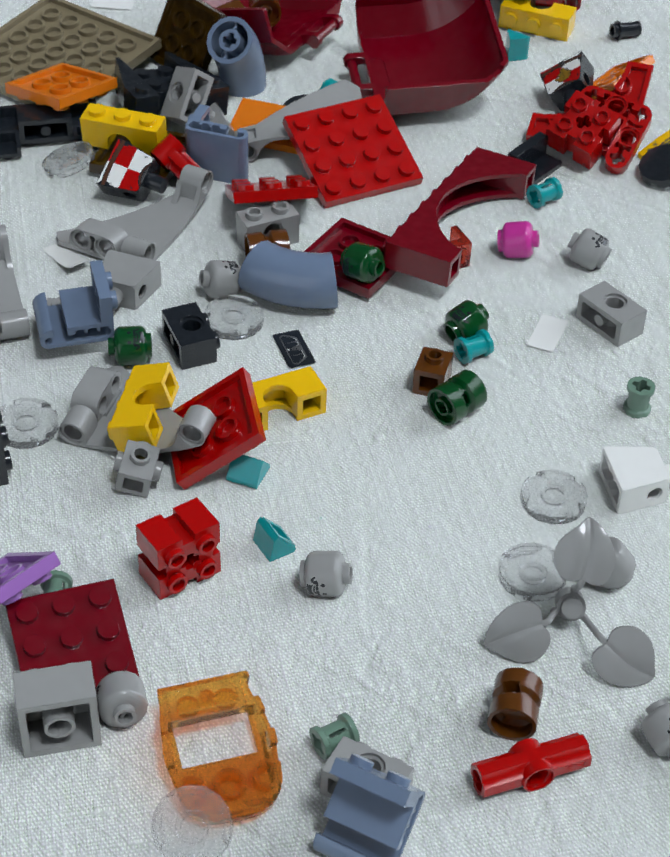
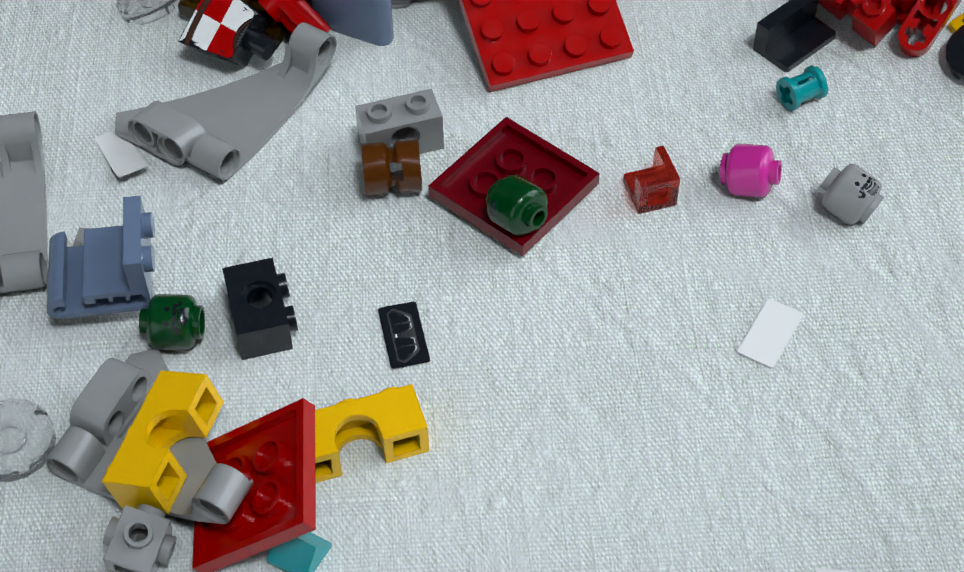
camera: 10 degrees right, 10 degrees up
(132, 277) = (190, 206): light grey torso -> none
(220, 278) = (320, 213): light grey head -> none
(235, 317) = (328, 276): clear tile -> none
(270, 189) = (412, 68): red plate -> none
(290, 277) = (412, 221): sand blue brick -> none
(420, 245) = (601, 180): dark red arch -> none
(431, 369) = (589, 400): reddish brown brick -> none
(457, 397) = (620, 448): dark green wheel -> none
(465, 320) = (652, 313): dark green head -> none
(473, 346) = (656, 356): teal bush -> none
(611, 313) = (867, 311): light grey brick -> none
(639, 395) = (885, 468): sand green bush -> none

